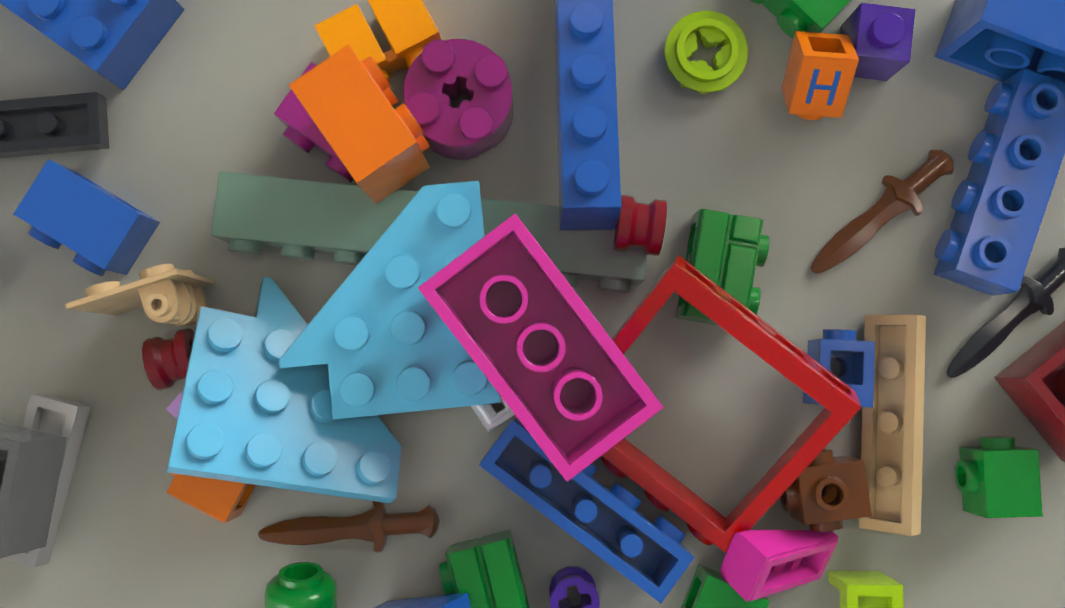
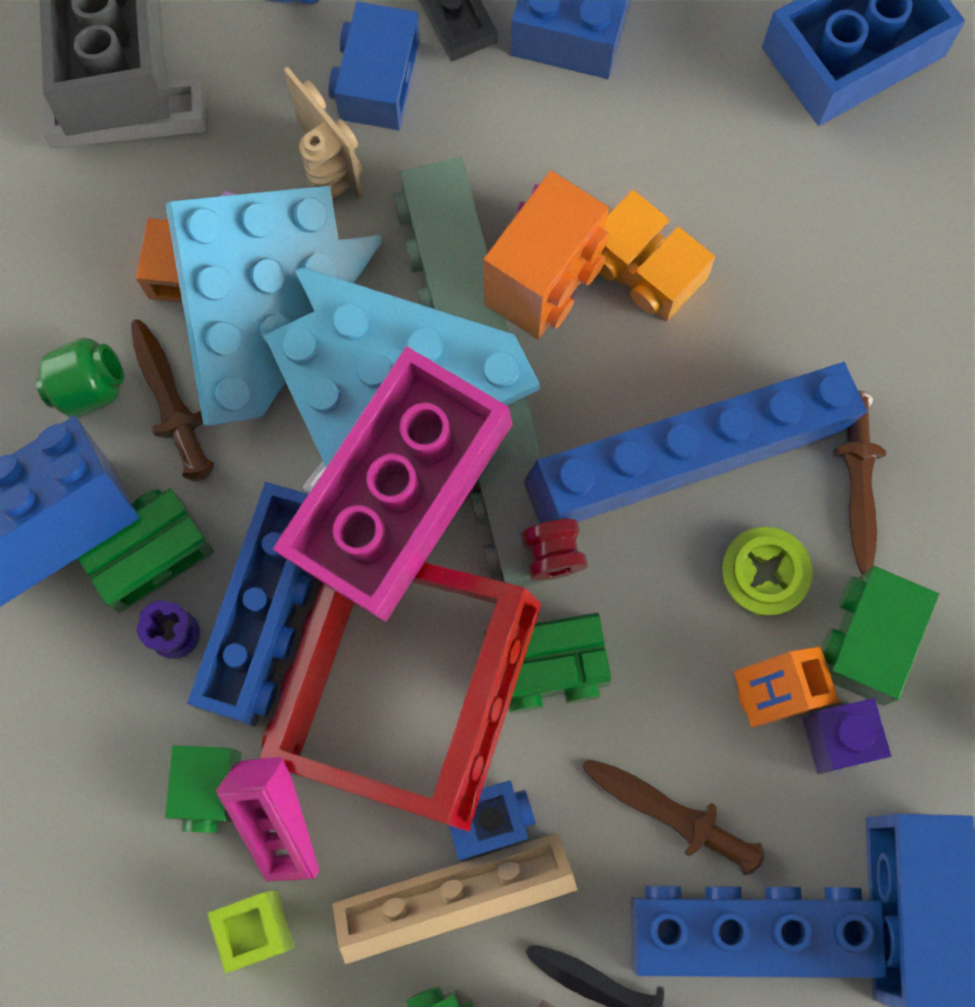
camera: 70 degrees right, 10 degrees down
(167, 359) = (270, 173): dark red wheel -> none
(452, 70) = (621, 318): magenta brick -> none
(828, 492) = (378, 852): reddish brown brick -> none

